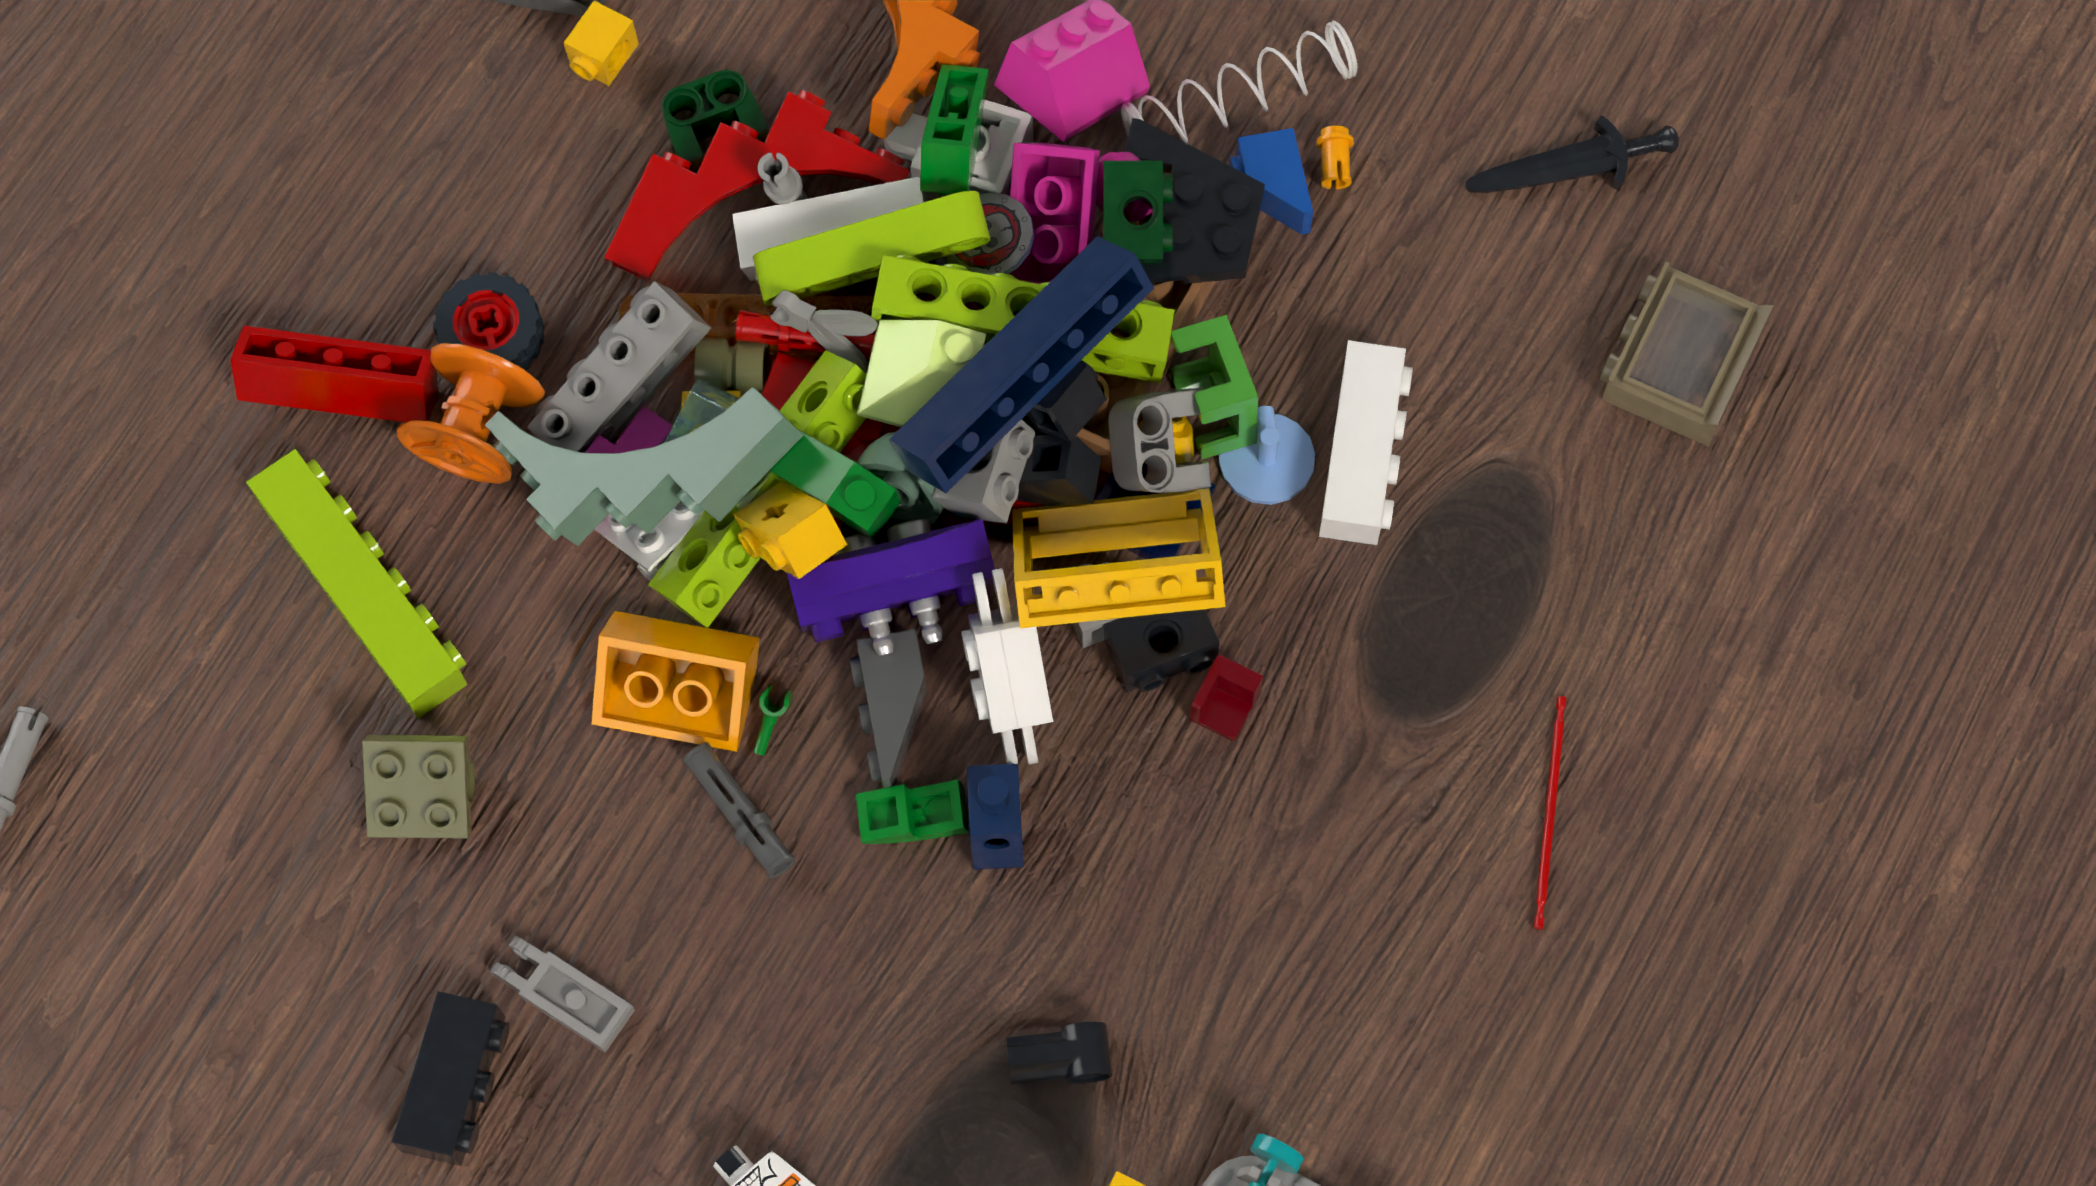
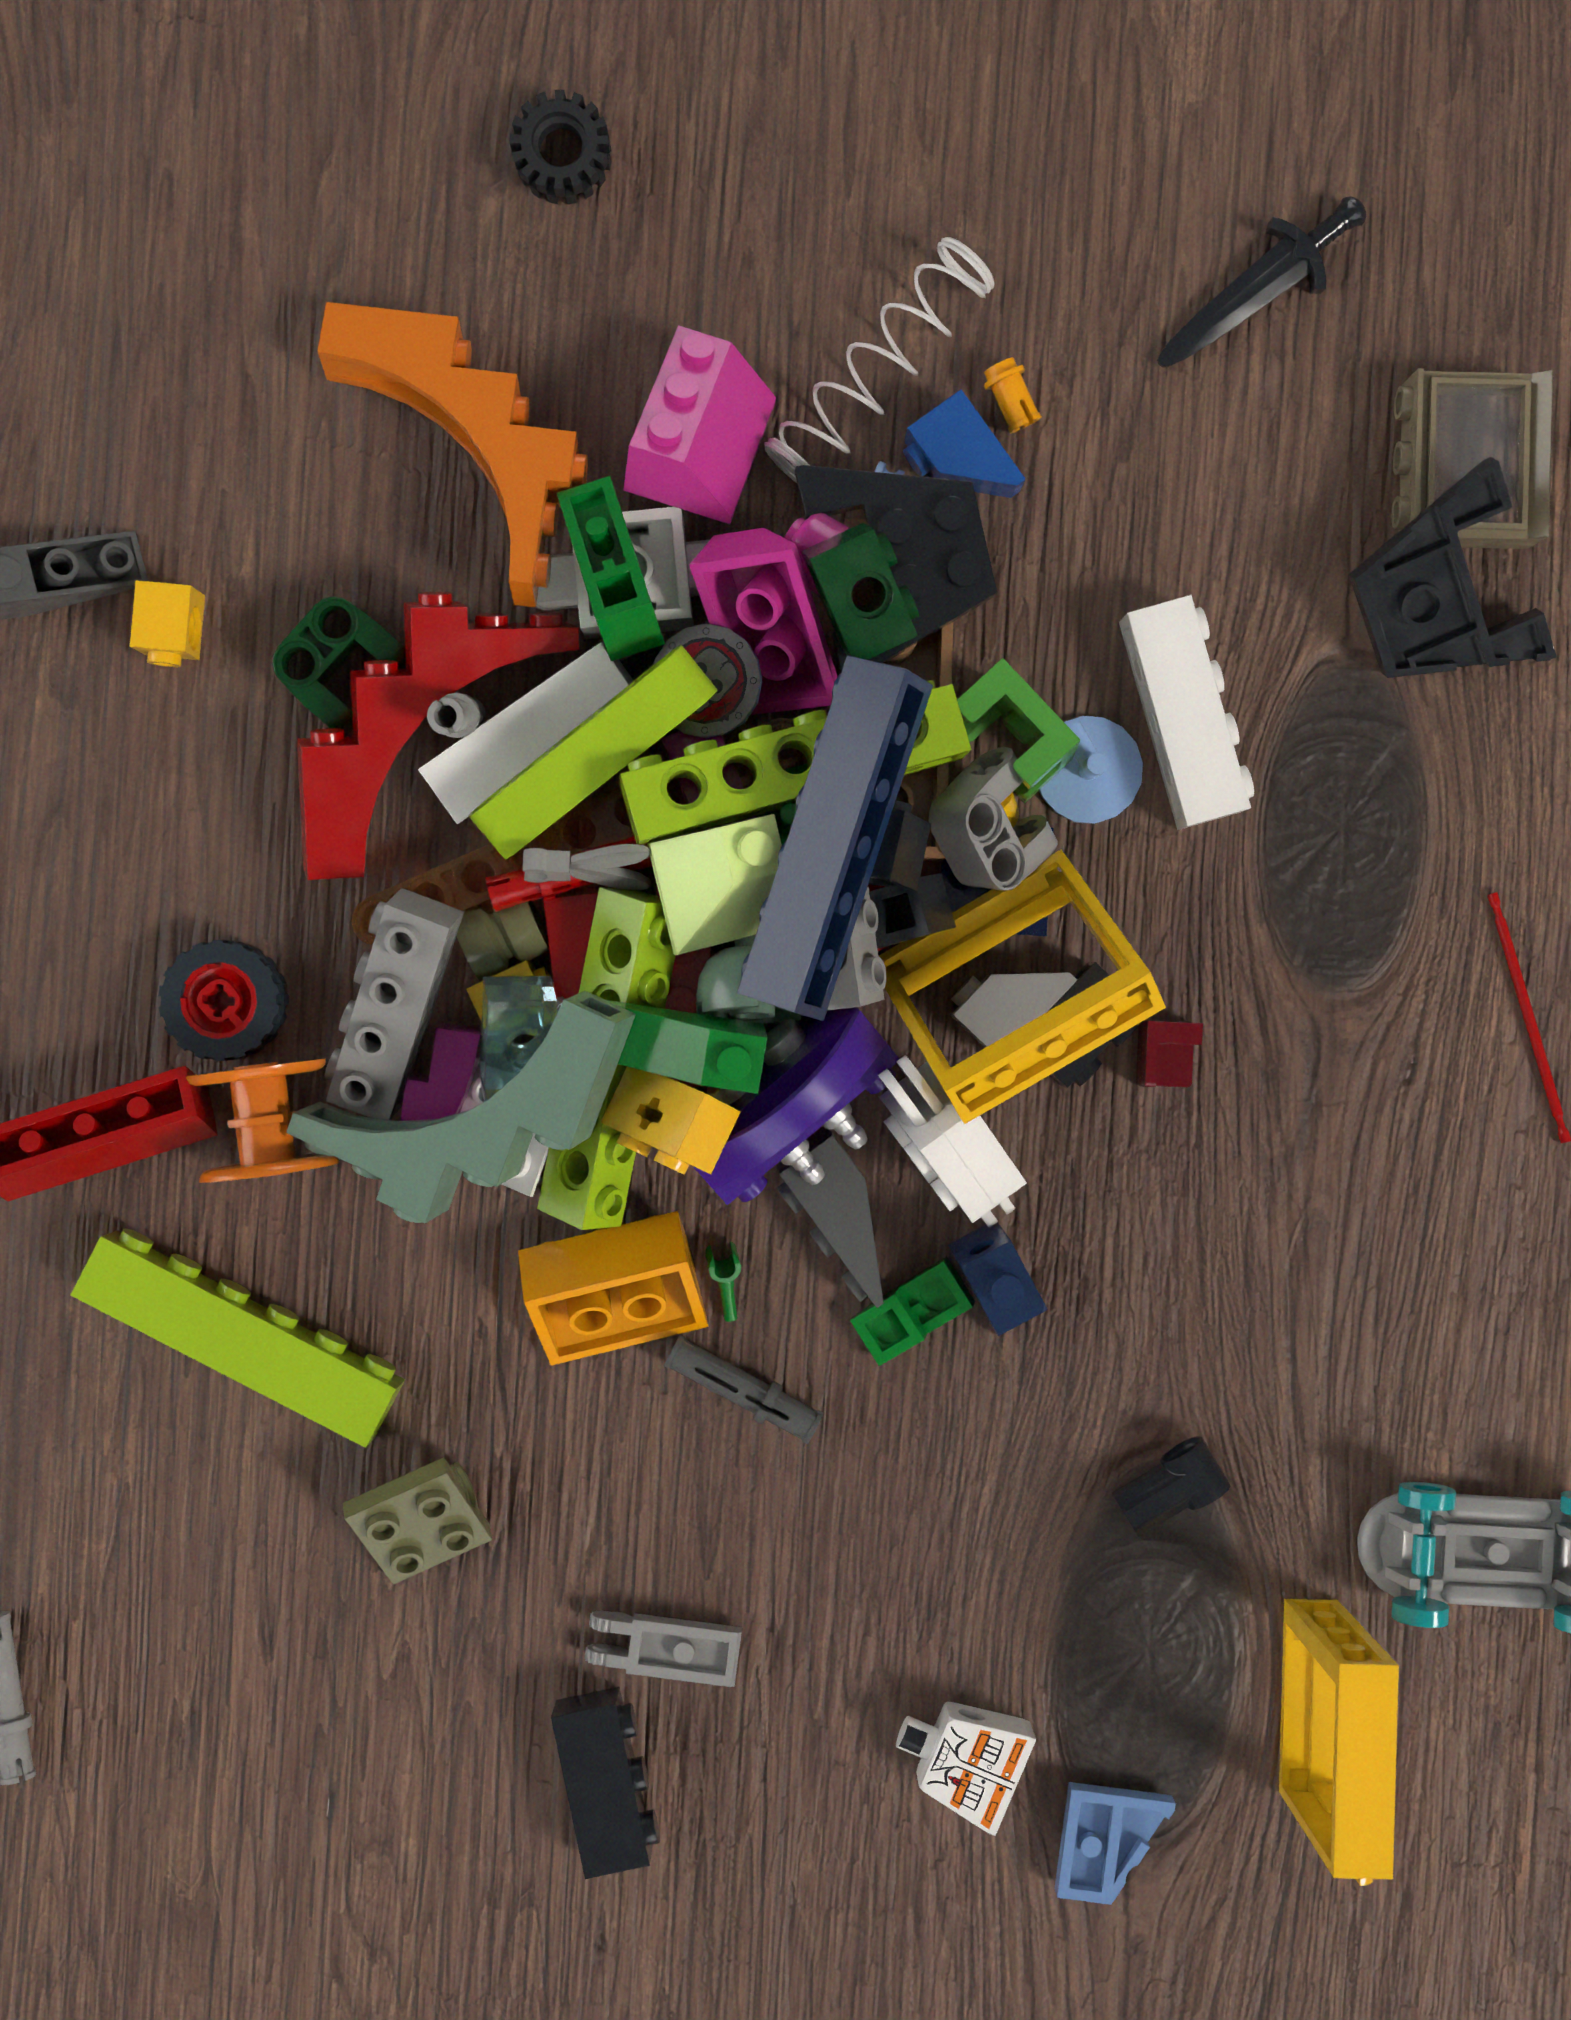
camera: 25 degrees left, 20 degrees up
(1596, 440) = (1422, 597): none -> black wing

